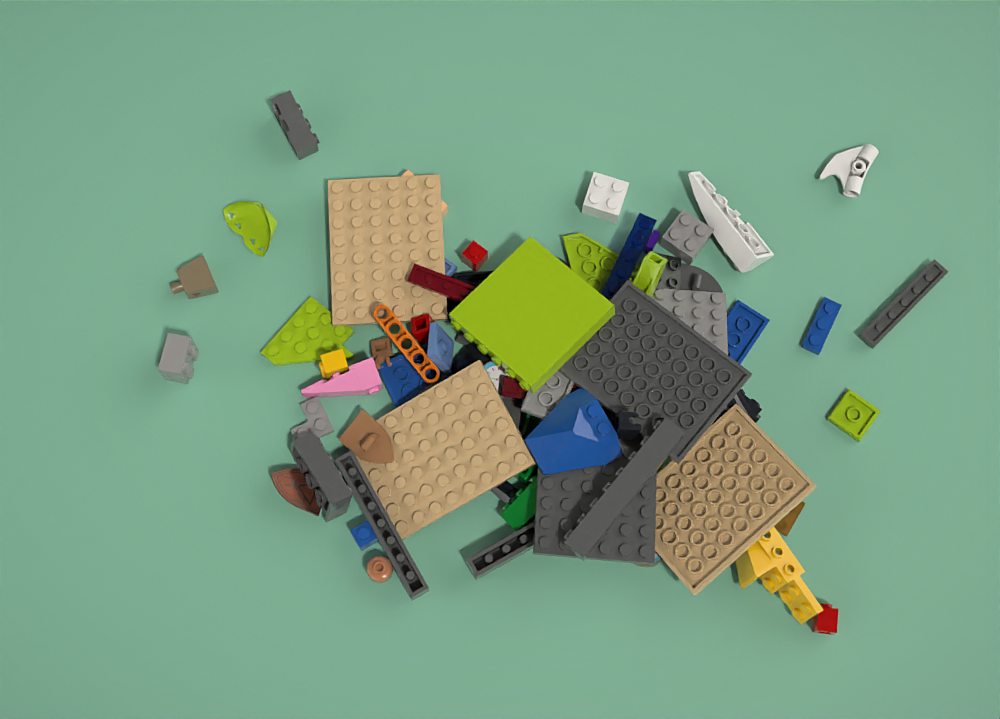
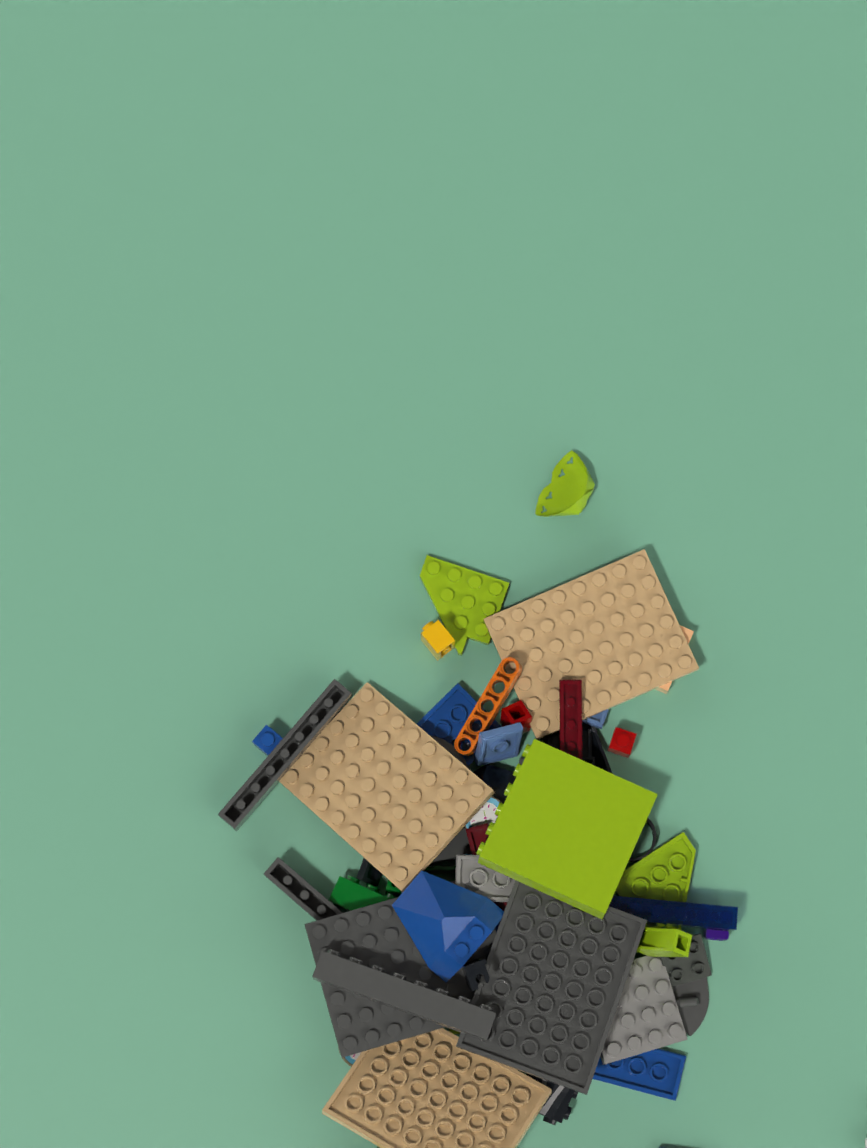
camera: 75 degrees right, 5 degrees up
(178, 358) = (385, 473): light grey brick -> none
(195, 279) = (480, 454): dark tan torso -> none
(294, 125) = (697, 488): dark grey wedge -> none
(294, 489) = (294, 657): copper shield -> none
(317, 420) = (369, 646): light grey plate -> none
(322, 476) = (314, 672): dark grey wedge -> none
(358, 381) = (432, 670): bright pink wedge -> none
(368, 440) = (370, 706): medium nougat shield -> none
(380, 569) = (238, 770): nougat head -> none
(381, 351) = (473, 682): medium nougat plate -> none
(605, 197) = (748, 863): white brick -> none
(686, 237) = (736, 972): light grey brick -> none
(735, 237) = (762, 1025): white wedge -> none

